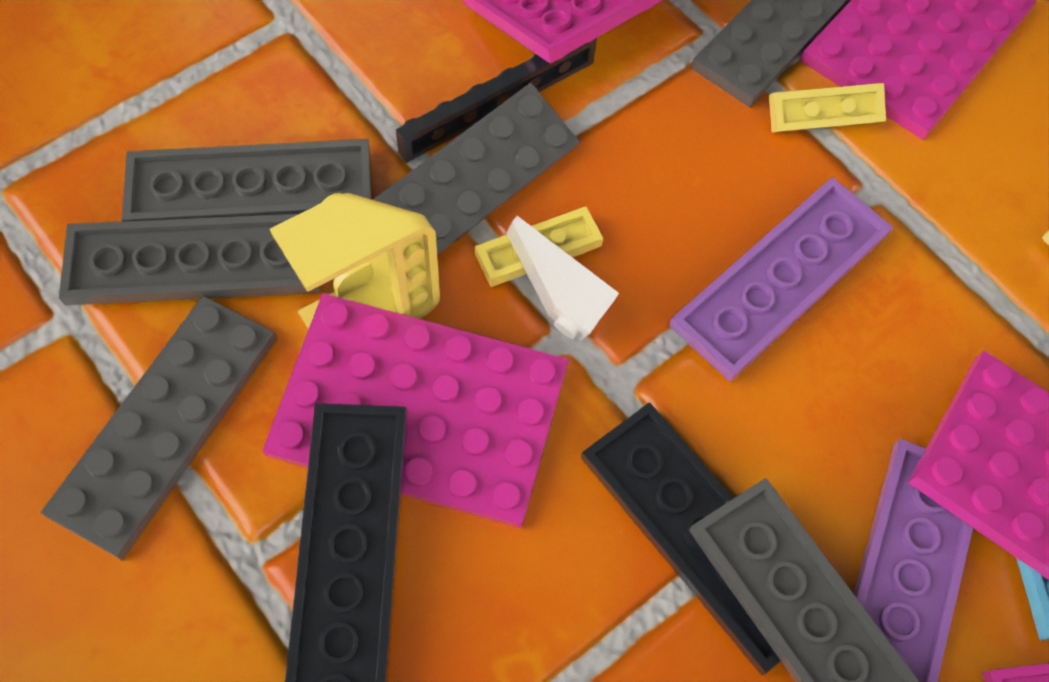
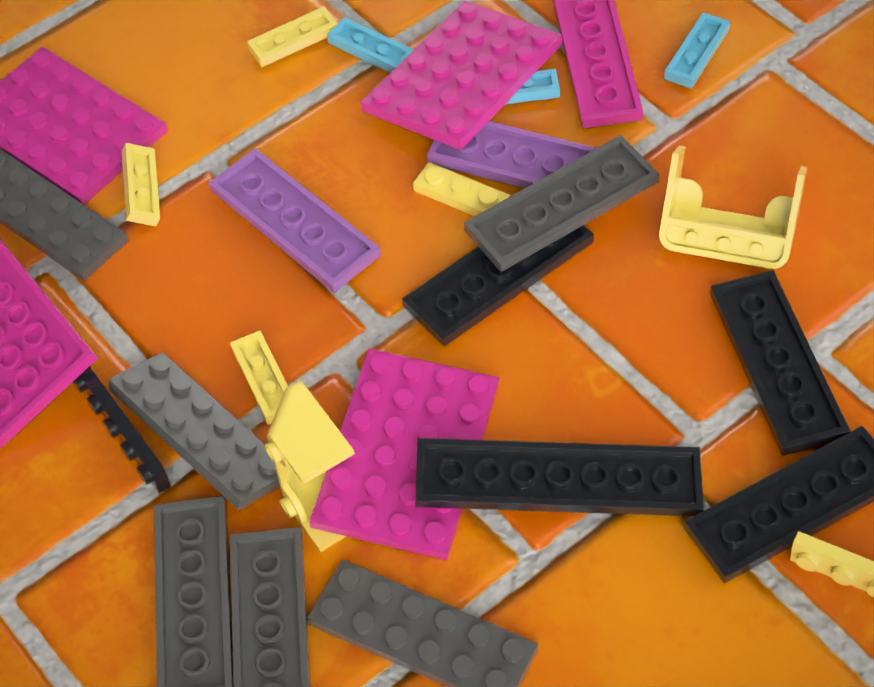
camera: 80 degrees left, 10 degrees down
(563, 285) = (304, 353): white slope -> none
(844, 488) = (456, 190): none -> light yellow plate

